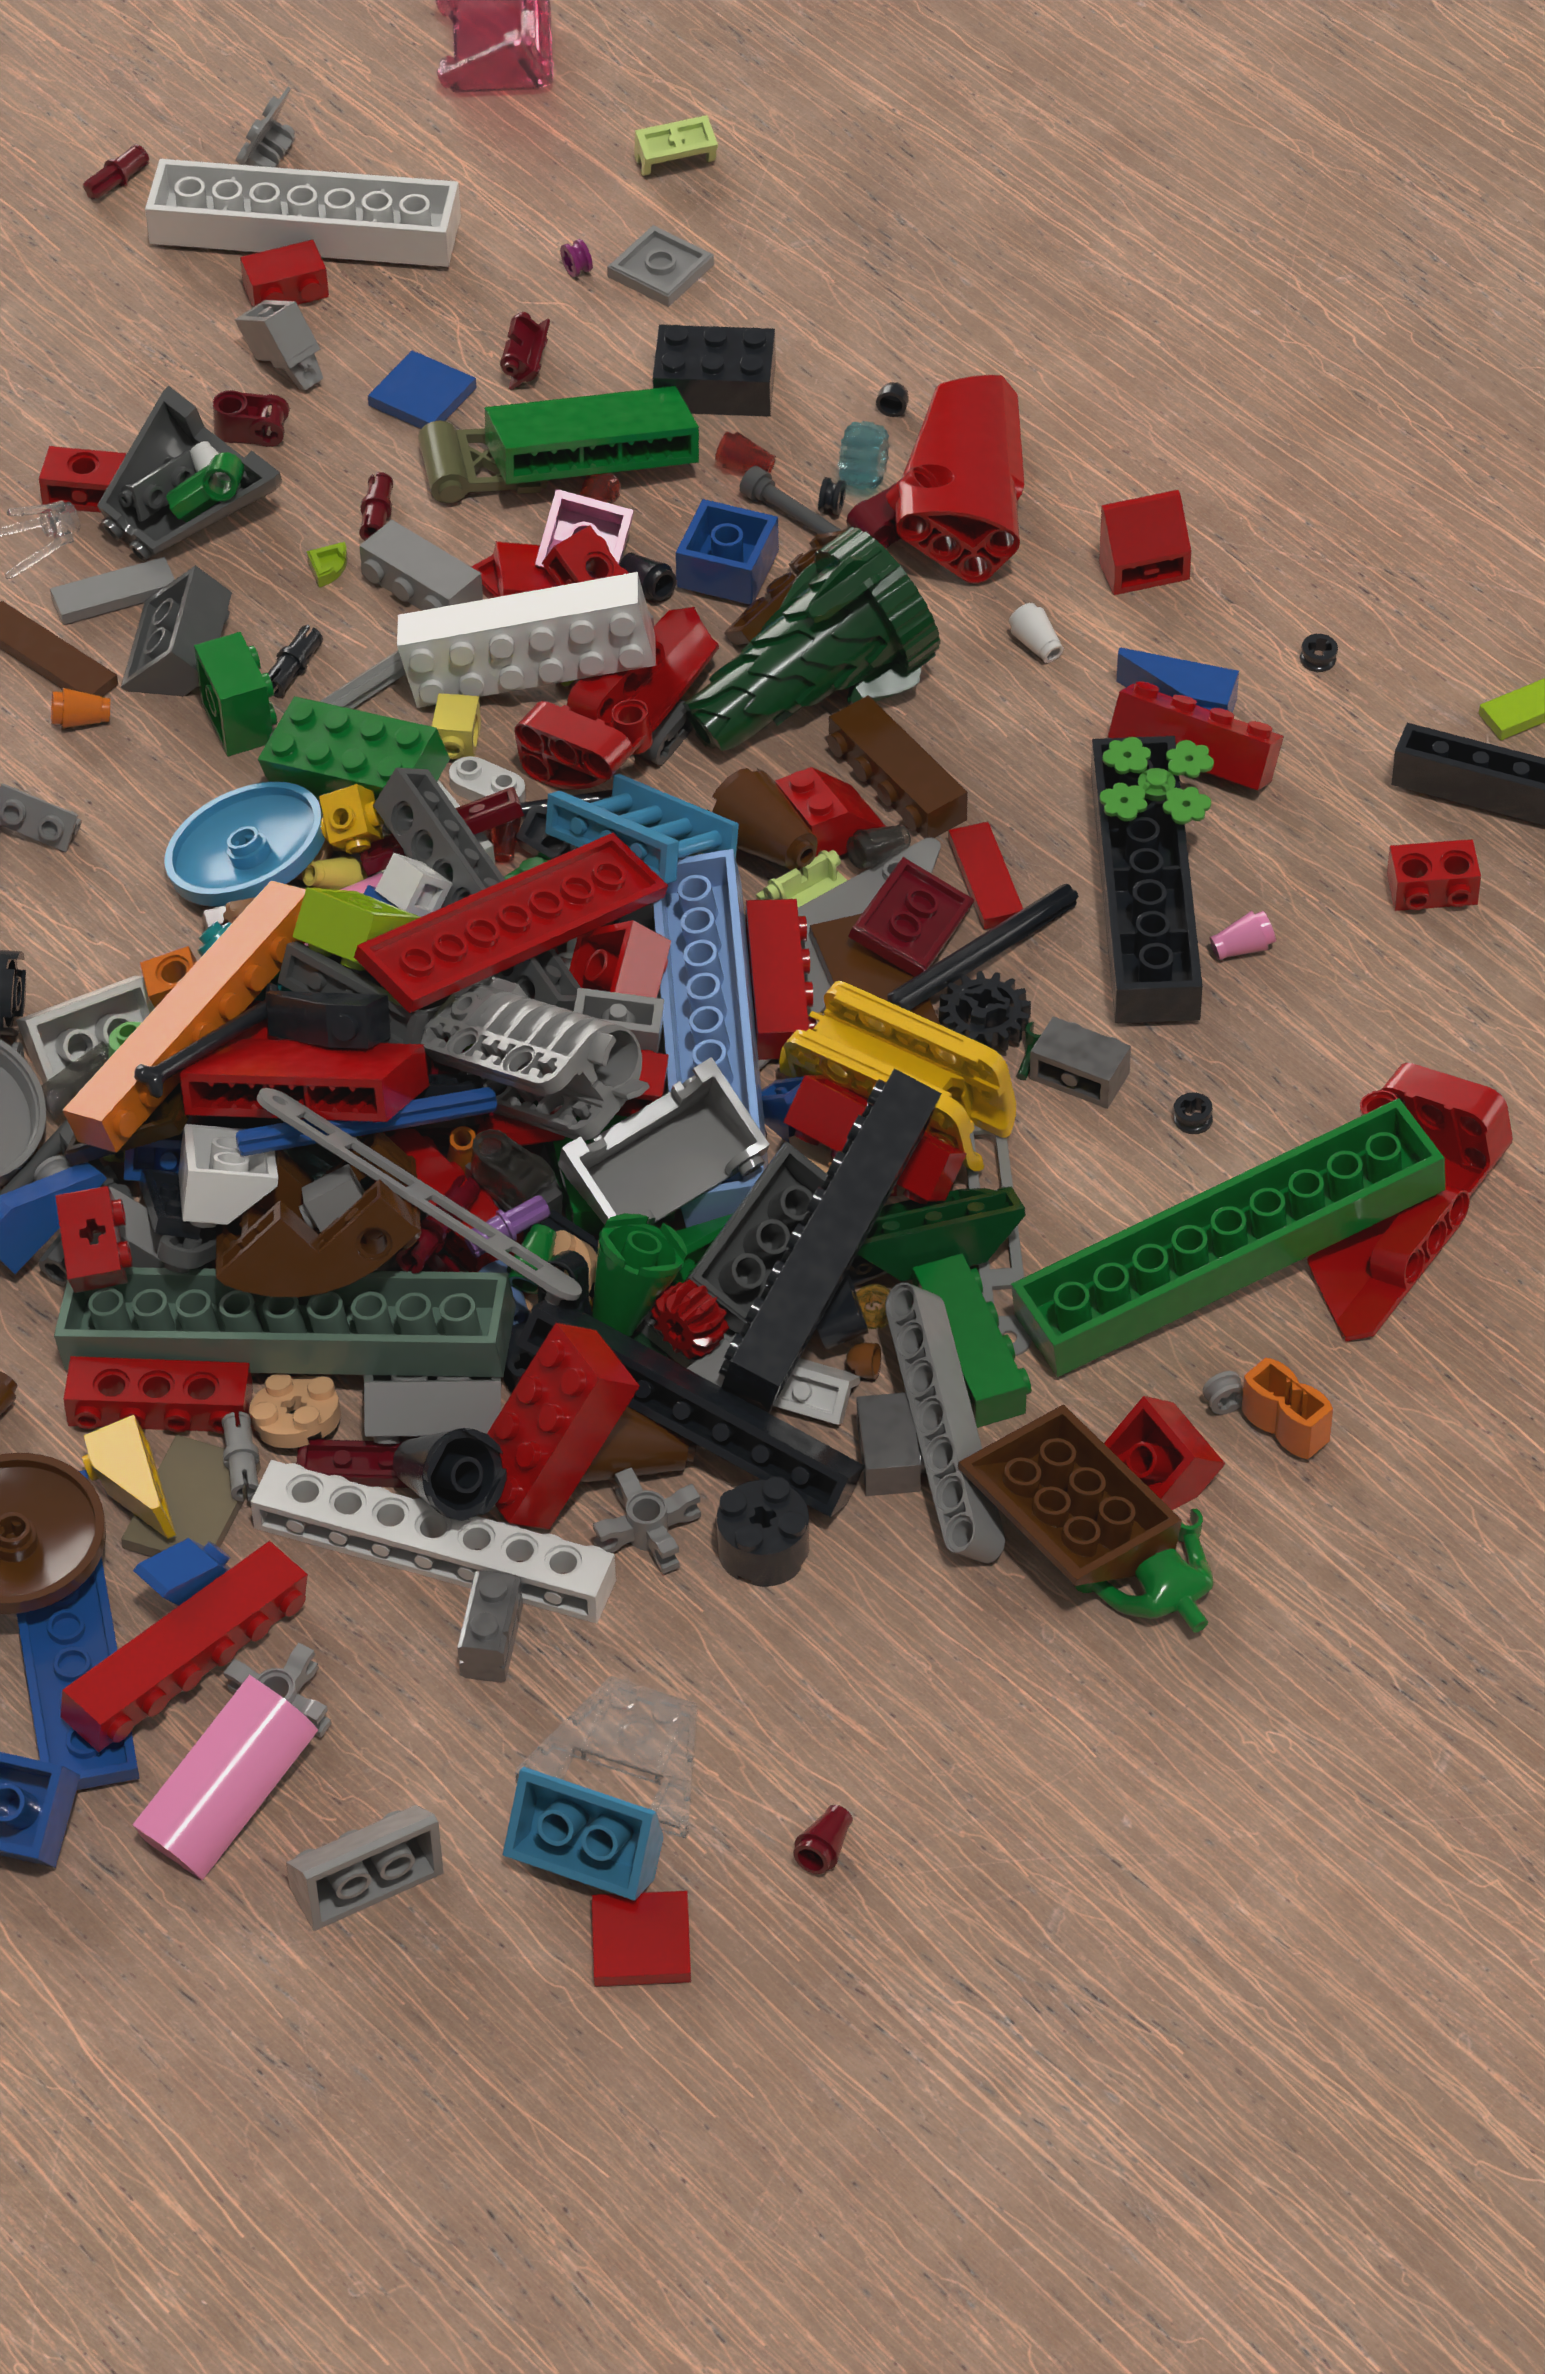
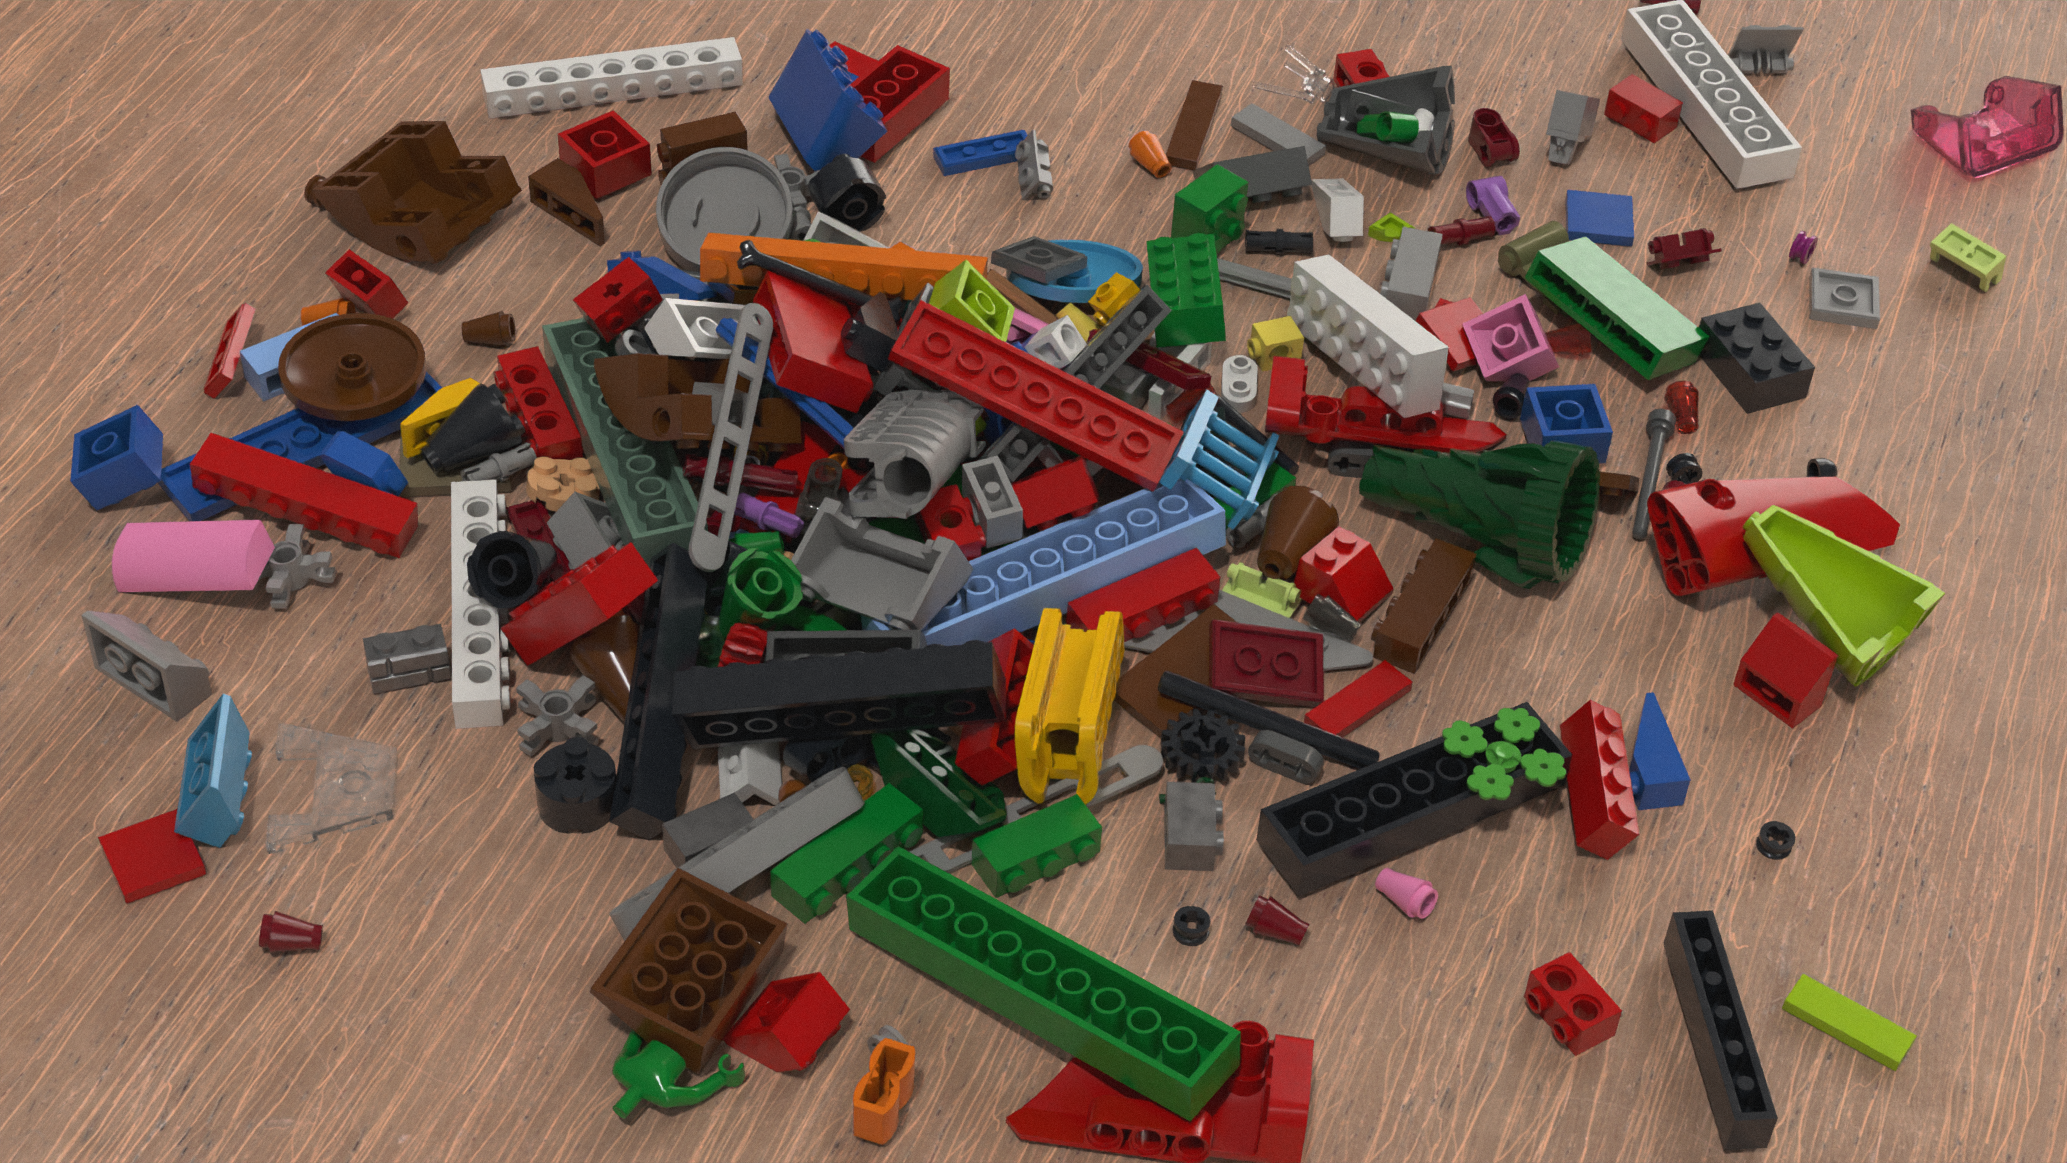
camera: 60 degrees right, 5 degrees down
(187, 1451) = (473, 431): none -> black cone
(231, 859) = (1039, 259): none -> dark grey plate
(279, 586) = (1339, 208): none -> white slope
(339, 460) = (1492, 199): none -> medium lavender piece
(578, 553) = (1475, 333): red brick -> none
(863, 455) = (1736, 462): clear light blue gear -> none
(1032, 955) = (1285, 756): none -> dark grey beam
(1035, 631) = (1642, 640): white cone -> none
(1044, 1187) = (1036, 846): none -> green brick
(1089, 452) = (1840, 590): none -> lime cone
(1224, 1047) = (1276, 921): none -> dark red cone

